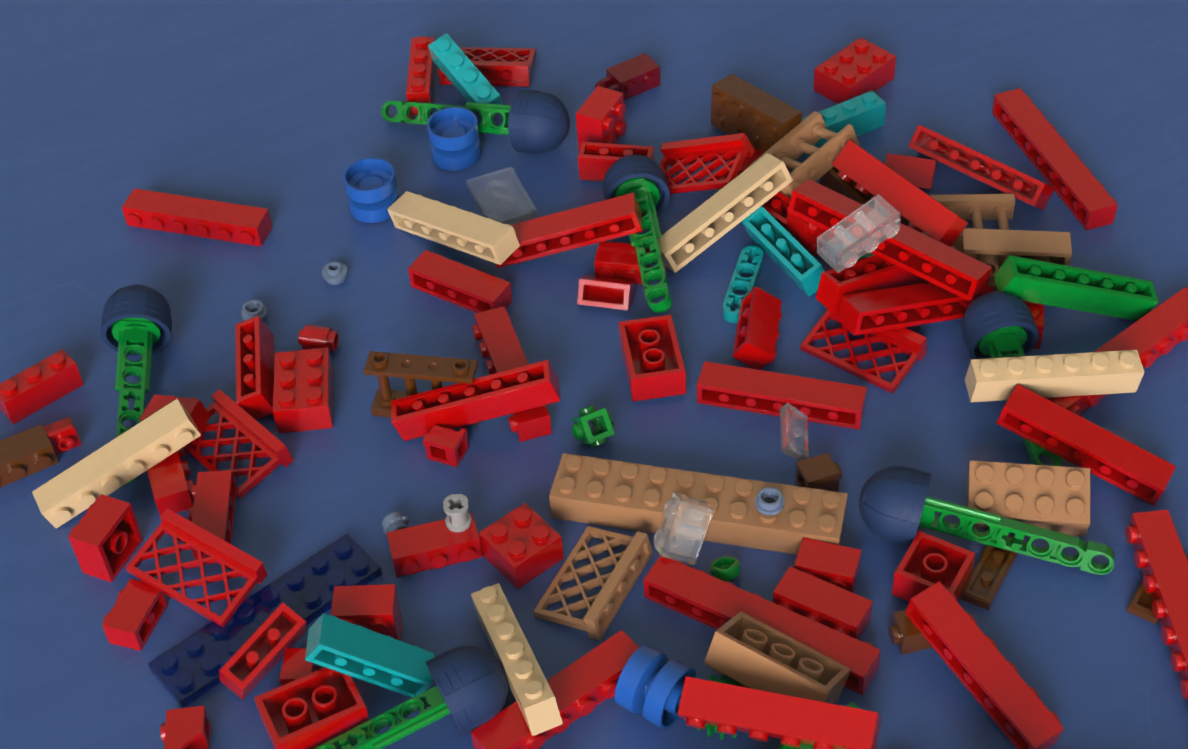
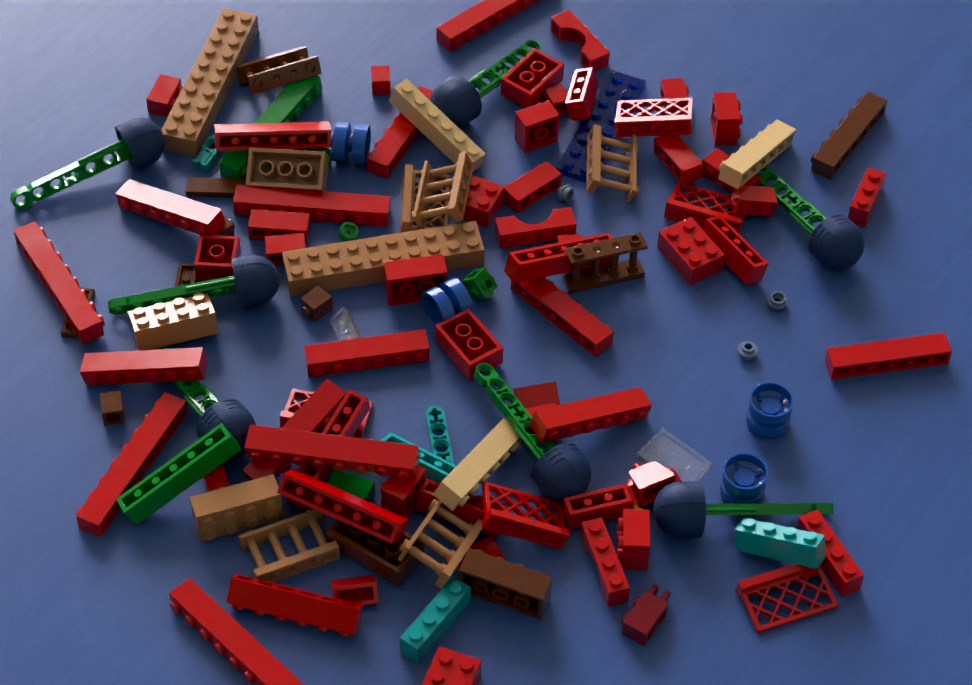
camera: 150 degrees right, 5 degrees up
(62, 435) = (821, 180): red bracket -> none
(318, 337) = (713, 292): red brick -> none
(323, 540) = (595, 166): none -> medium nougat fence
(368, 656) = (515, 96): teal brick -> none
(438, 478) = (513, 232): none -> red arch
(454, 227) = (680, 393): tan brick -> none
(457, 517) = (526, 191): light grey bush -> none
(459, 283) = (646, 364): red brick -> none
(542, 540) = (457, 196): none -> medium nougat fence
(545, 168) = (647, 481): none -> torso
(642, 113) = (611, 575): none -> red arch
(643, 405) = (446, 301): none -> blue wheel
(674, 442) = (409, 278): none -> red brick
(683, 528) = (380, 221): clear brick -> none
(757, 329) = (406, 393): red brick -> none
(769, 501) = (332, 247): sand blue plate -> none
(858, 233) = (349, 417): clear brick -> none
(900, 717) = (212, 187): none -> reddish brown tile
(1055, 375) = (176, 393): tan brick -> none
(1138, 424) = (112, 408): none -> reddish brown brick

